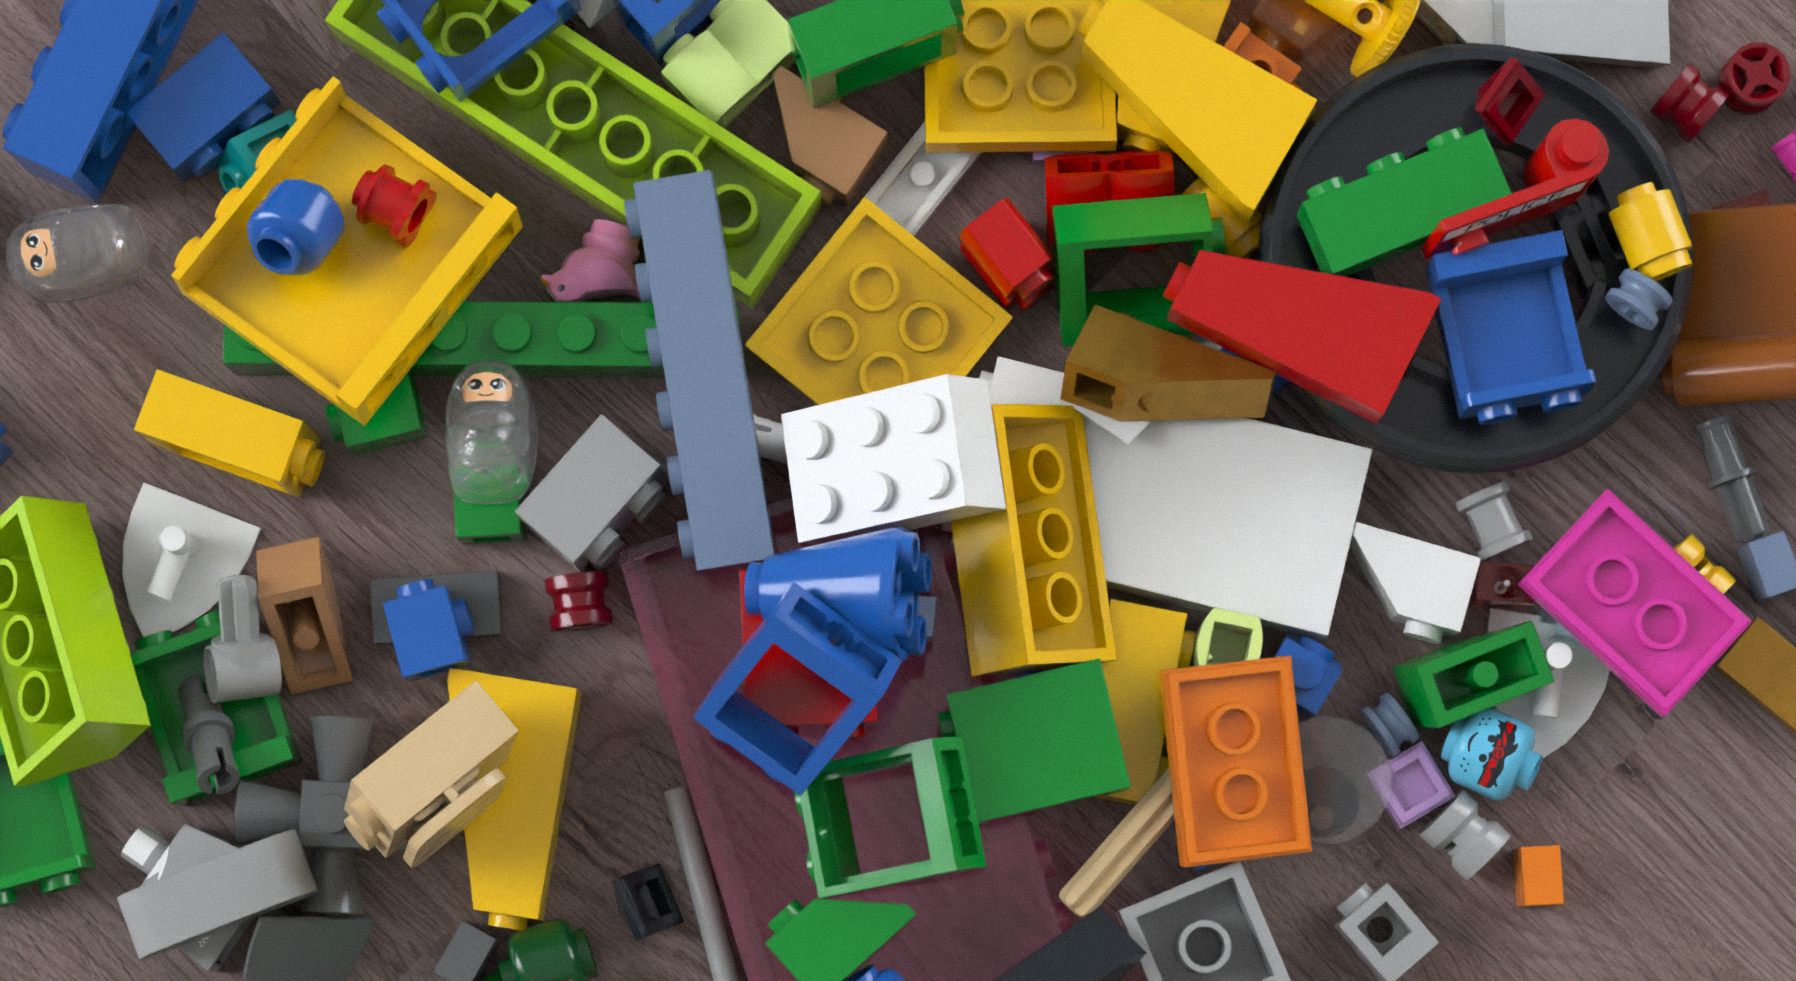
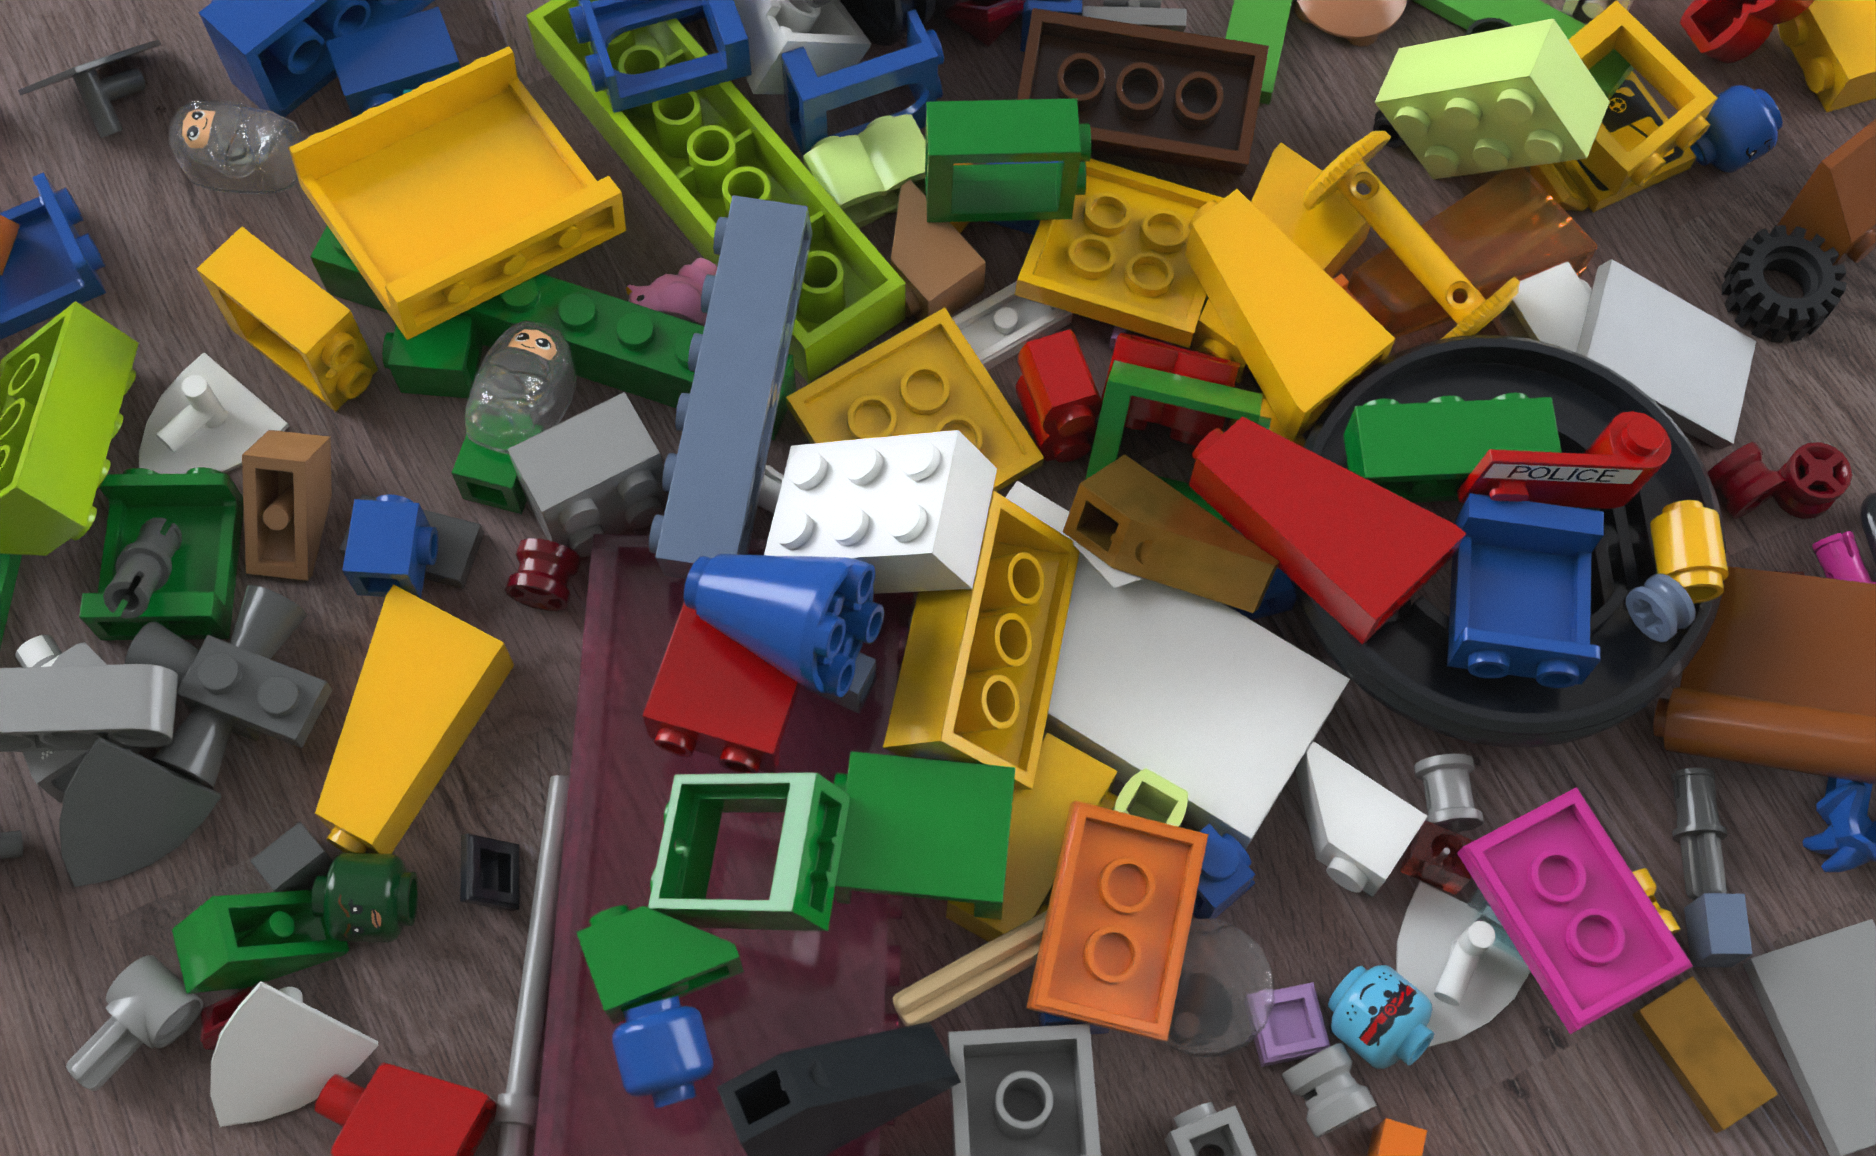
camera: 15 degrees right, 15 degrees down
(241, 659) = (206, 512): light grey axle -> none
(295, 227) = (416, 146): blue head -> none
(393, 203) = (516, 163): red brick -> none
(433, 779) = (317, 655): tan brick -> none
(803, 630) = (747, 643): blue window -> none
(1389, 724) = (1286, 953): sand blue bush -> none
(1472, 675) = (1386, 927): green slope -> none
(1508, 100) = (1581, 393): dark red slope -> none

